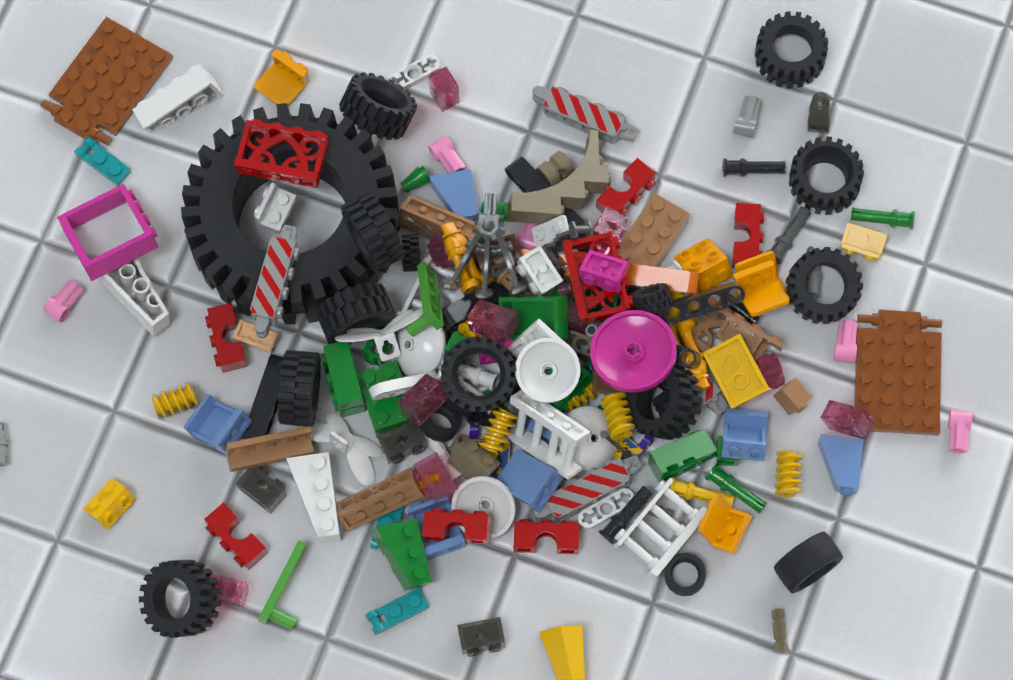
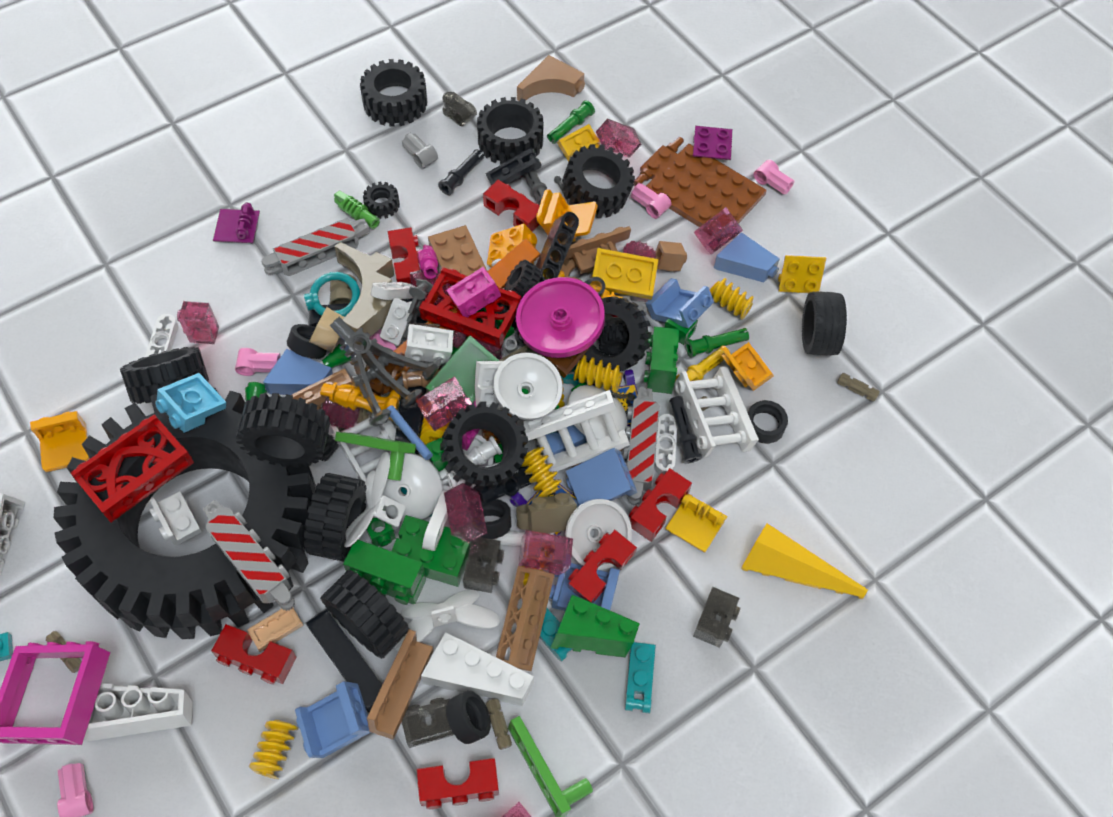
camera: 60 degrees left, 10 degrees down
(146, 204) = (72, 664): none -> dark tan axle
(270, 506) = (462, 727): none -> black tyre
(295, 535) = (498, 723): none -> dark tan axle
(356, 147) = (189, 402): none -> medium azure plate
(453, 313) = (409, 433): none -> medium blue bar
(499, 173) = (299, 342): none -> black tyre
(506, 185) = (323, 334): none -> tan piece
(524, 155) = (312, 299): none -> teal piece
(553, 575) = (696, 522): none -> yellow hinge
(559, 38) = (237, 225): none -> magenta hinge
(565, 202) = (391, 290): none -> white beam
(625, 212) = (428, 261): none -> dark pink hinge
(645, 115) = (355, 209): none -> bright green hinge
(671, 138) = (381, 191): none -> black tyre
(785, 207) = (515, 167): none -> black plate
(856, 517) = (801, 274): none -> yellow hinge
(889, 270) = (618, 136): none -> clear pink brick
(922, 163) = (551, 76): none -> medium nougat arch
(954, 353) = (712, 142): none -> magenta hinge

